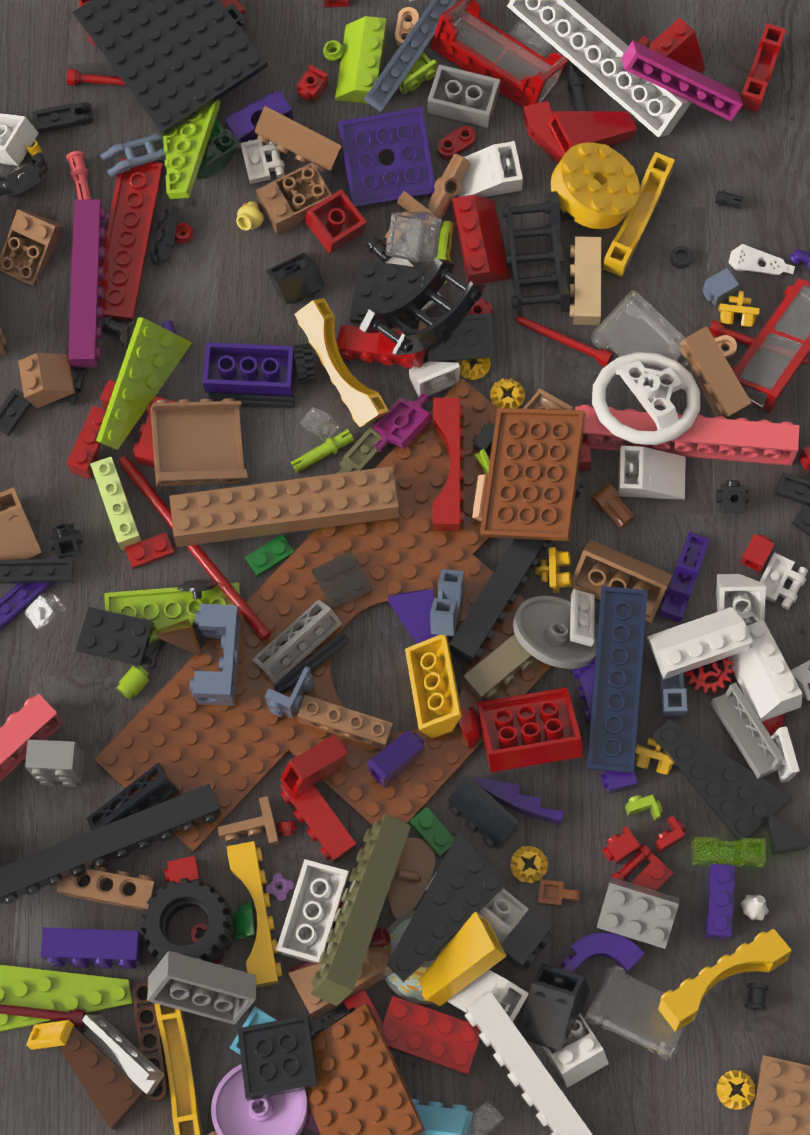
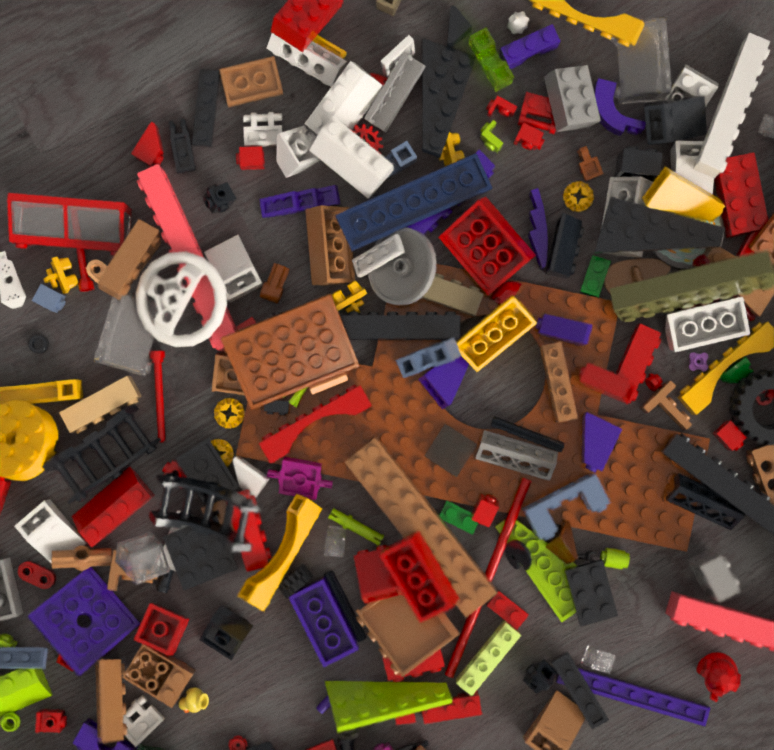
camera: 120 degrees left, 15 degrees up
(236, 469) = (419, 576): none -> red brick
(261, 578) = (485, 509): none -> red brick
(262, 728) = (597, 441): none -> dark purple slope
(263, 442) = (374, 577): none -> red slope
(289, 706) = (575, 437): sand blue bracket -> none
(361, 452) = (342, 496): olive hinge -> none
(445, 241) = (133, 531): lime pin -> none

